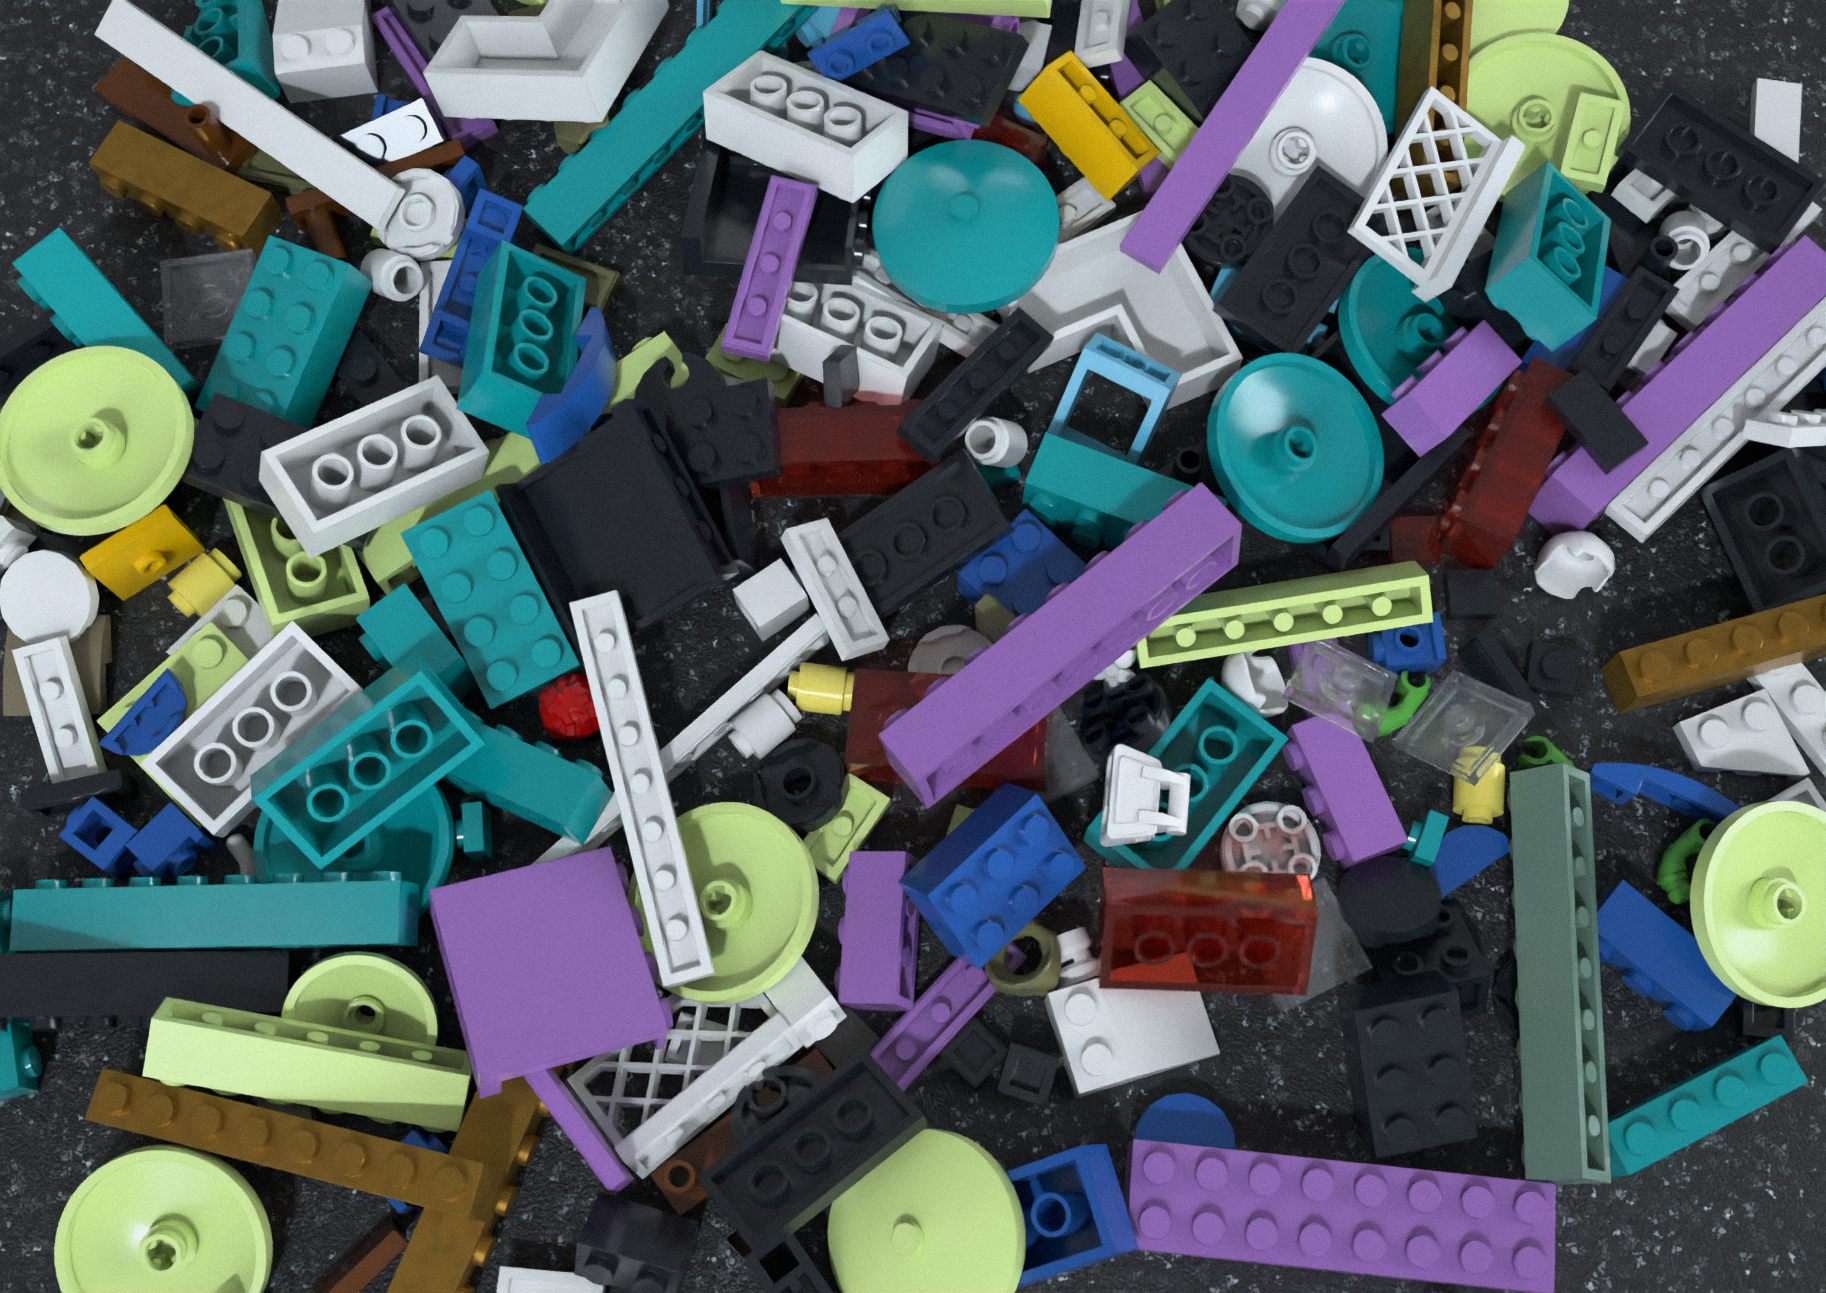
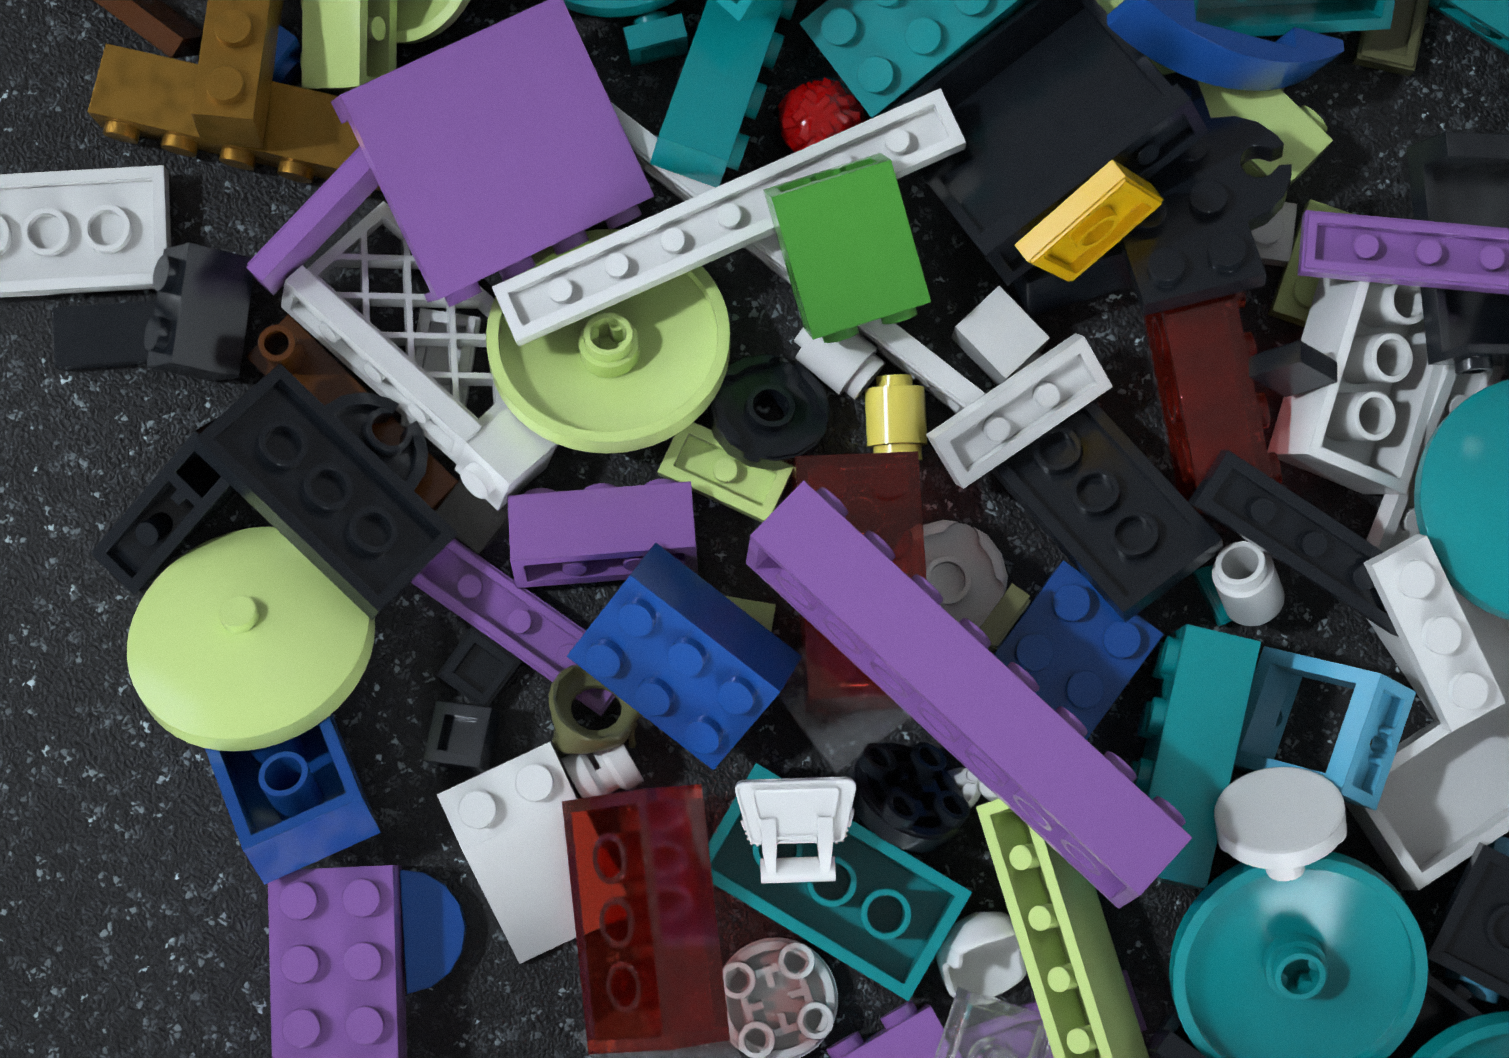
camera: 80 degrees right, 10 degrees up
(685, 691) = (848, 248): none -> bright green brick
(705, 492) = (1090, 222): none -> yellow plate
(1054, 311) = (1434, 632): none -> white plate
(1185, 434) = (1280, 820): none -> white tile

